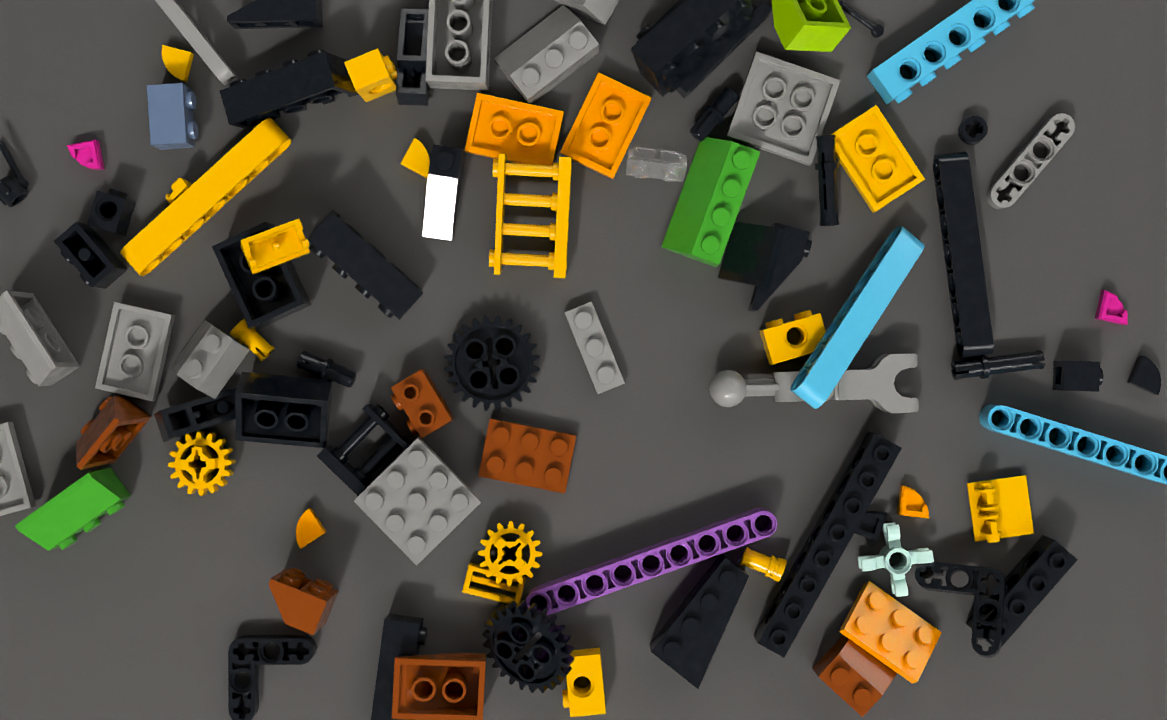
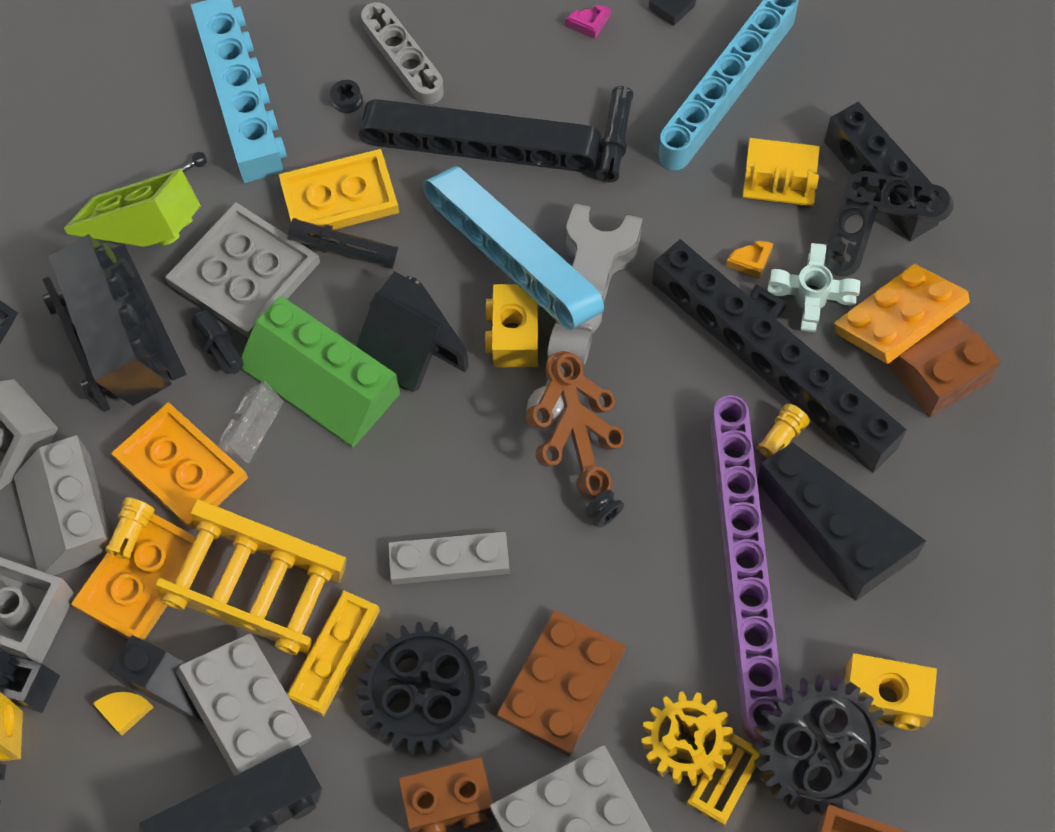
camera: 75 degrees left, 25 degrees down
(441, 243) = (242, 704): none -> light grey plate
(501, 289) = (333, 653): none -> yellow tile
(541, 112) = (132, 518): none -> yellow pin
(663, 449) = (604, 508): none -> black bush
(682, 434) = (575, 420): none -> dark orange plant
(1077, 376) = (651, 63): black brick -> none

